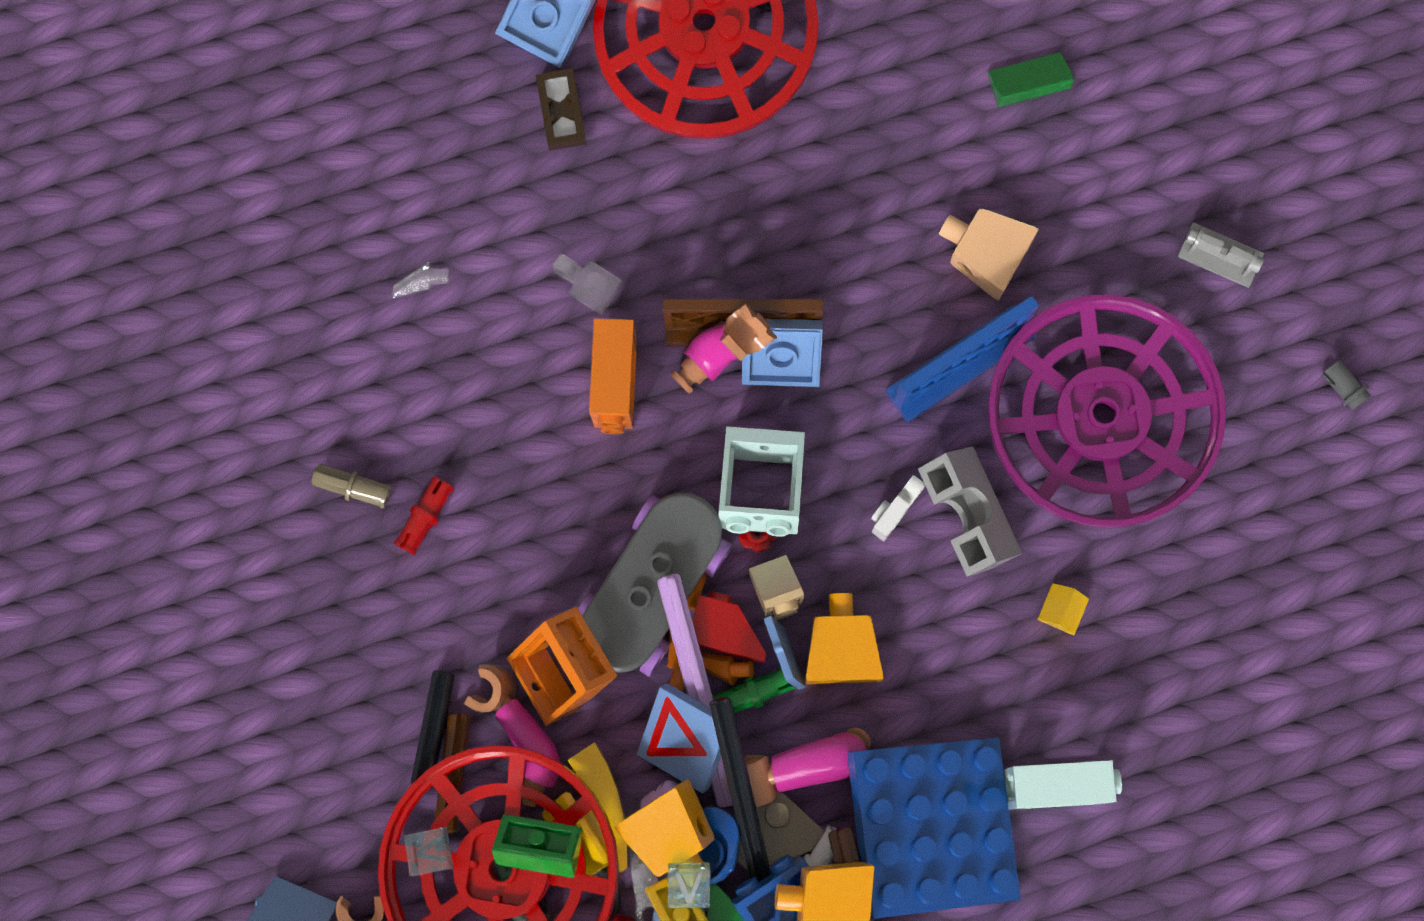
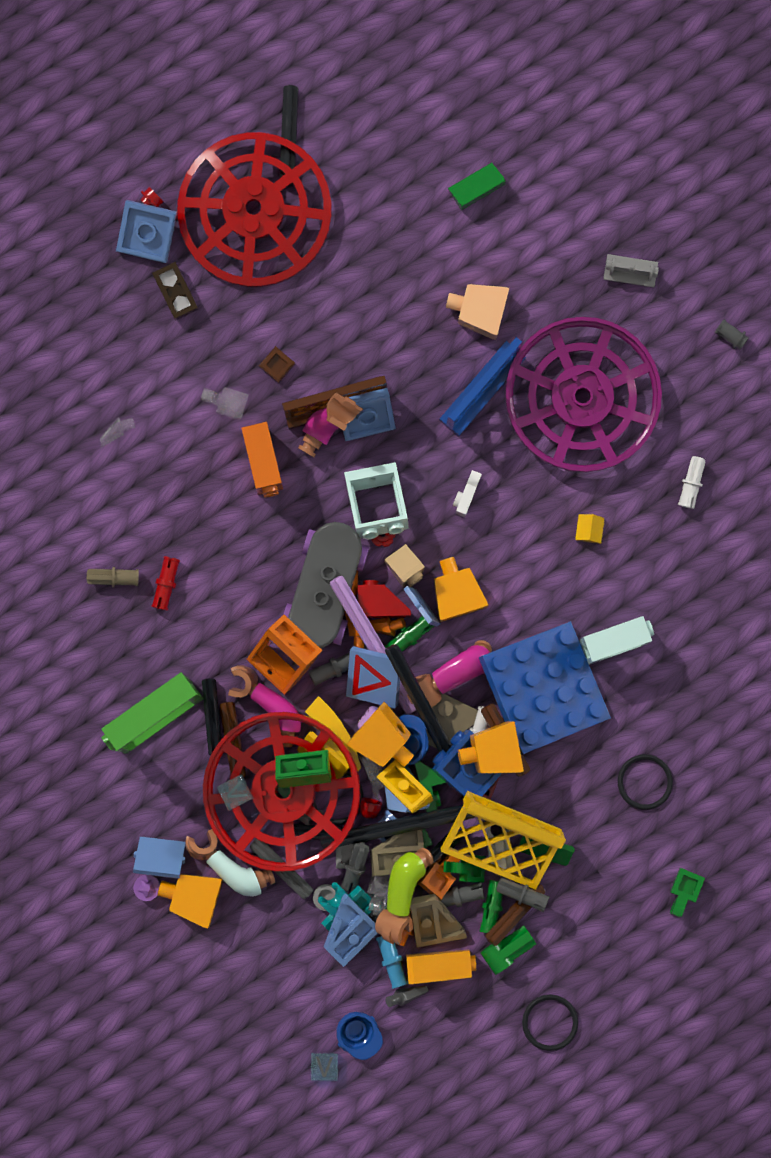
camera: 25 degrees left, 5 degrees up
(336, 699) = (151, 714): none -> bright green window
(623, 708) = (333, 668): none -> dark grey pin
(675, 250) = (277, 364): none -> reddish brown tile
(688, 885) = (403, 766): clear light blue tile -> none
(963, 484) = (505, 467): light grey arch -> none
(1233, 584) = (692, 483): none -> white axle

